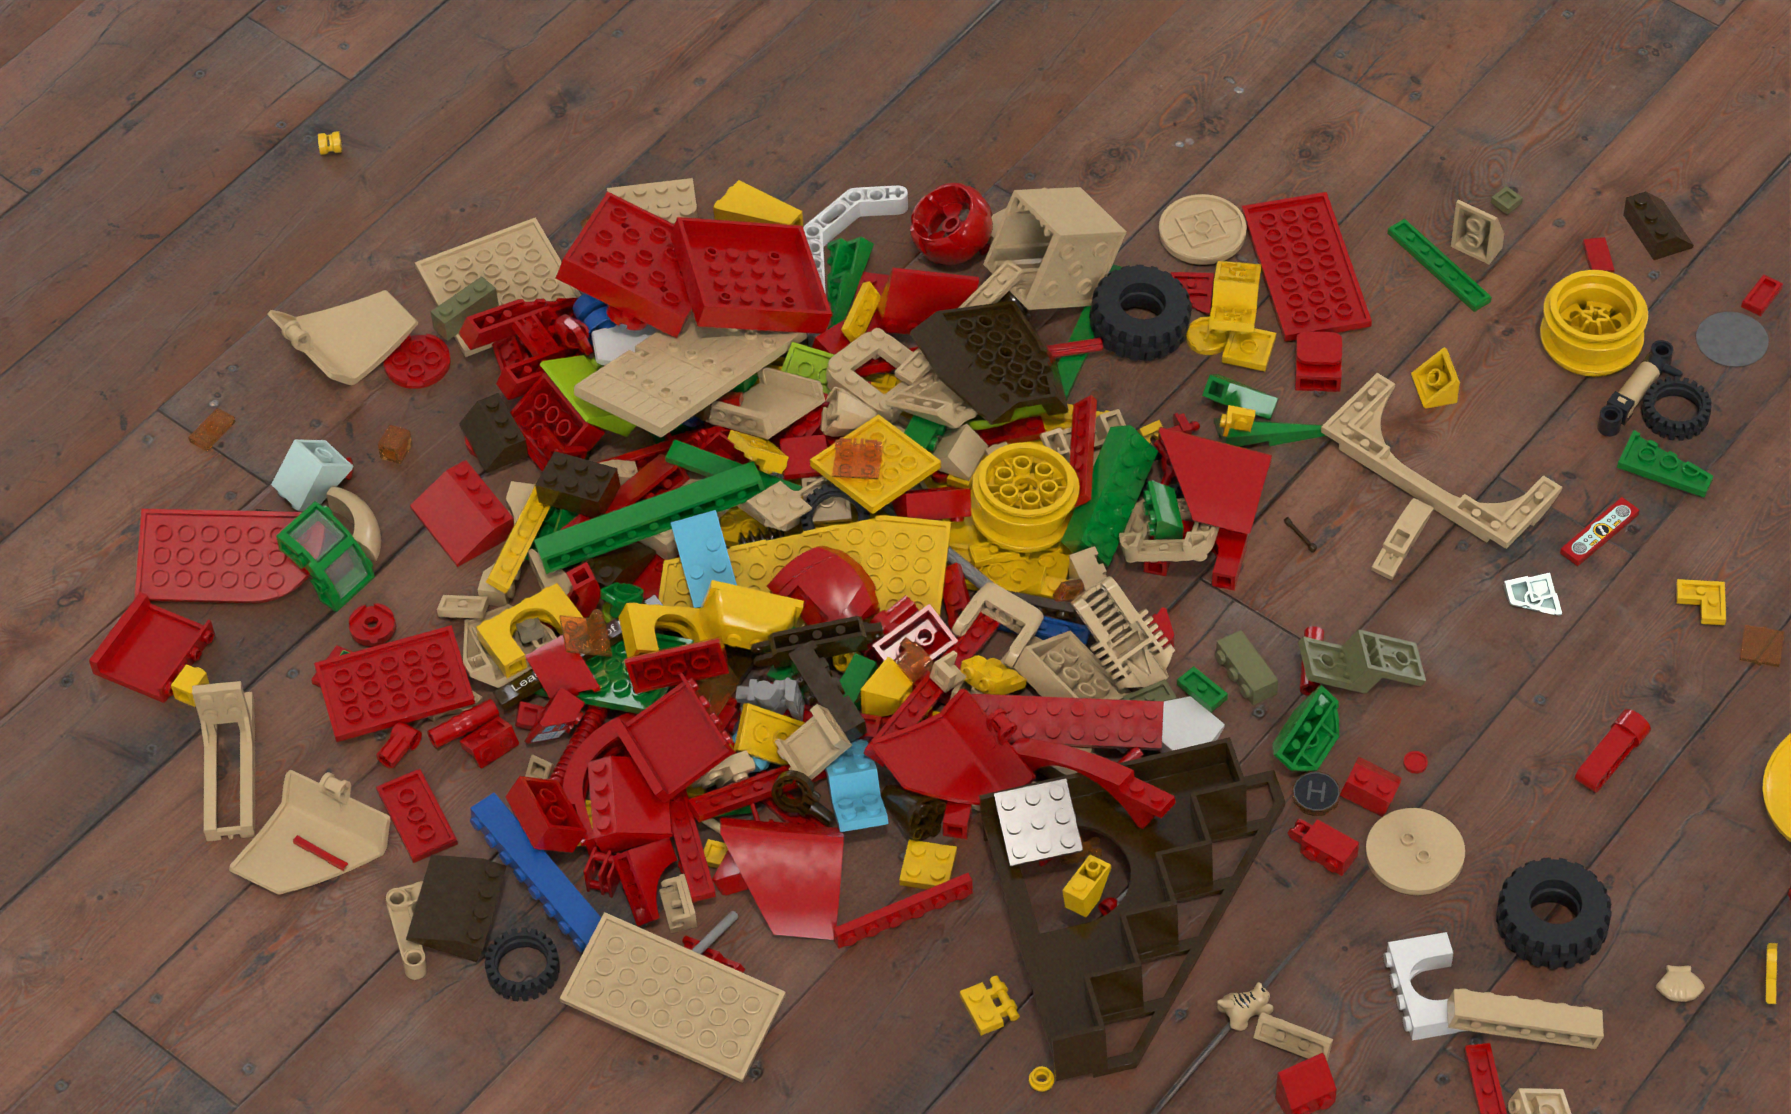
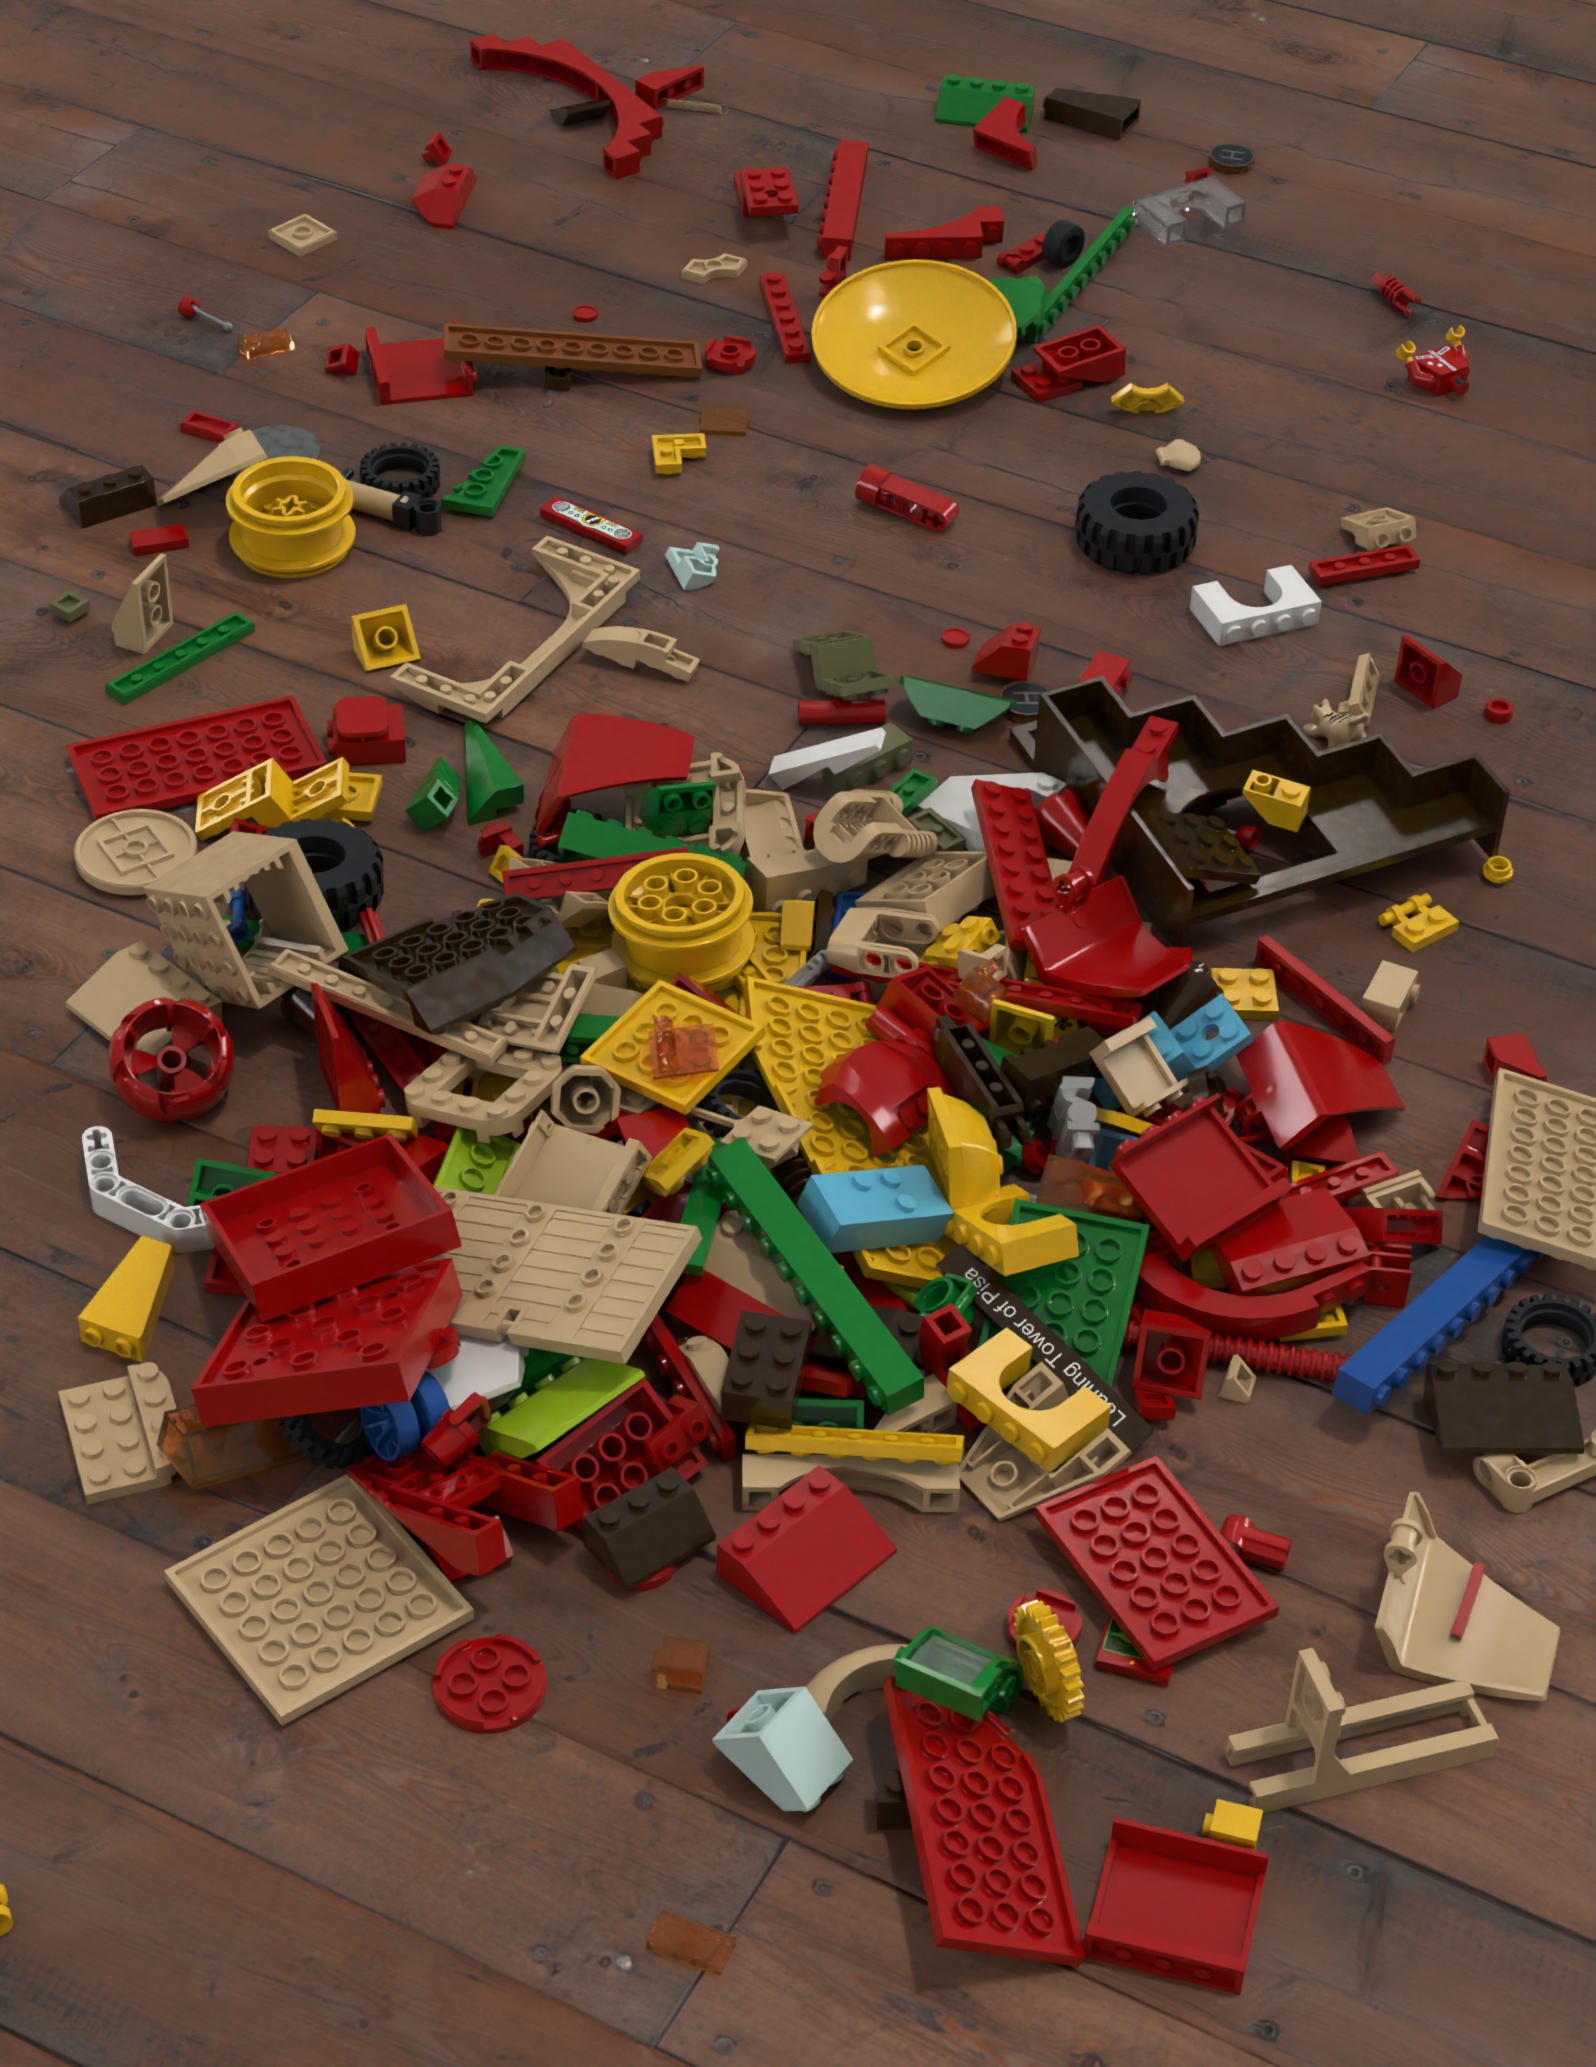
camera: 105 degrees left, 10 degrees down
(319, 599) = (1048, 1660): none -> yellow gear
(350, 337) = (456, 1772): tan panel -> none
(416, 815) = (1355, 1508): red tile -> none
(463, 606) = (983, 1515): tan plate -> none
(463, 723) = (1194, 1478): red axle -> none
(473, 299) = (397, 1606): olive brick -> none
(490, 741) = (1208, 1443): red bracket -> none
(530, 630) = (1029, 1396): dark tan plate -> none
(546, 814) = (1352, 1309): red brick -> none
(561, 669) = (1088, 1349): red slope -> none
(586, 634) = (1036, 1313): clear orange hinge -> none
(663, 667) = (1080, 1182): red slope -> none
(715, 932) = (1434, 1162): light grey bar -> none
(802, 1019) = (1512, 1054): none -> red slope
(899, 955) = (1390, 994): none -> tan brick
(1068, 590) = (812, 885): clear orange tile -> none
(1174, 589) = (769, 825): none -> tan slope
(1230, 623) = (836, 754): none -> white slope
(1237, 418) = (506, 770): yellow bracket -> none
(1415, 851) = (1080, 625): tan plate -> none
(1525, 1018) = (1280, 531): tan brick -> none
(1654, 276) = (232, 455): none -> tan wedge

